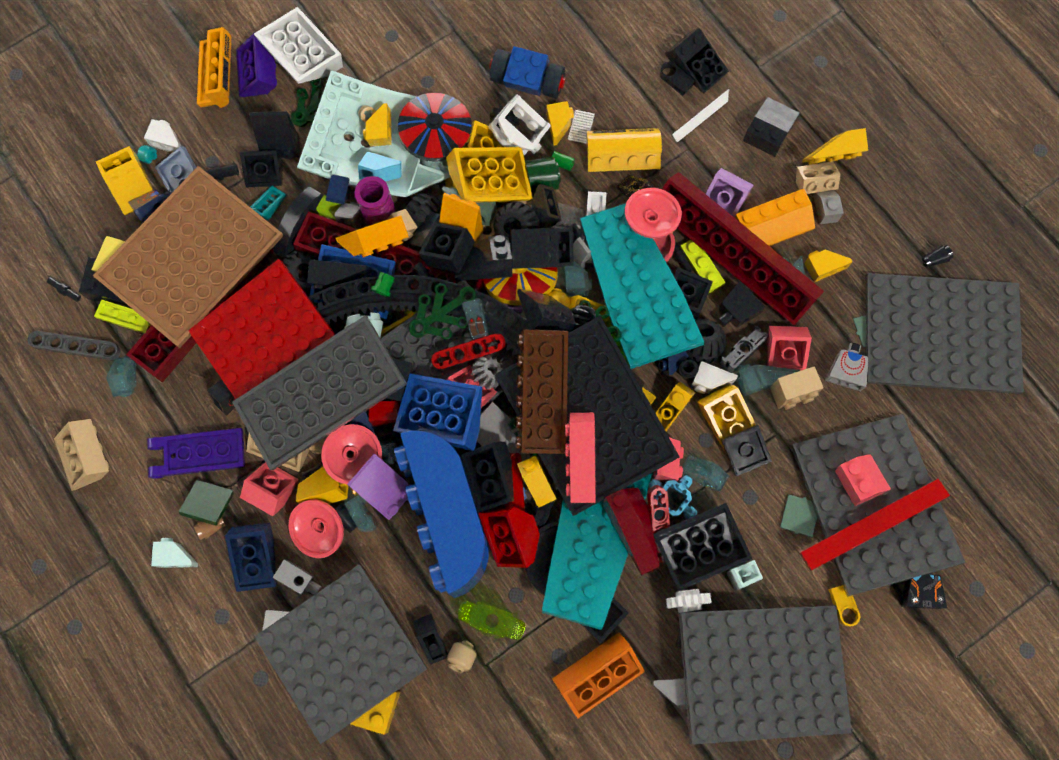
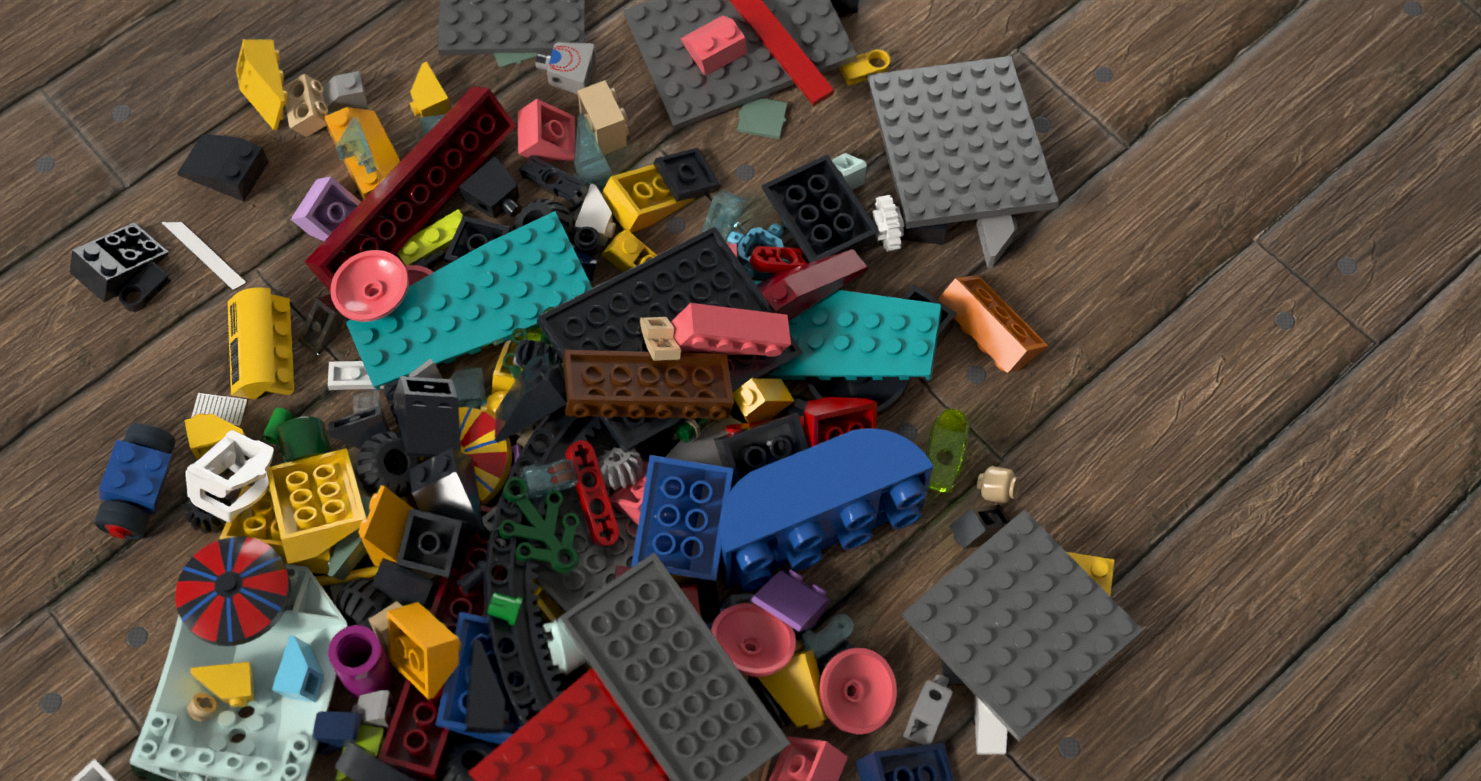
camera: 100 degrees left, 10 degrees down
(578, 403) = (659, 338): none -> tan slope
(774, 206) = (354, 143): none -> clear light blue slope

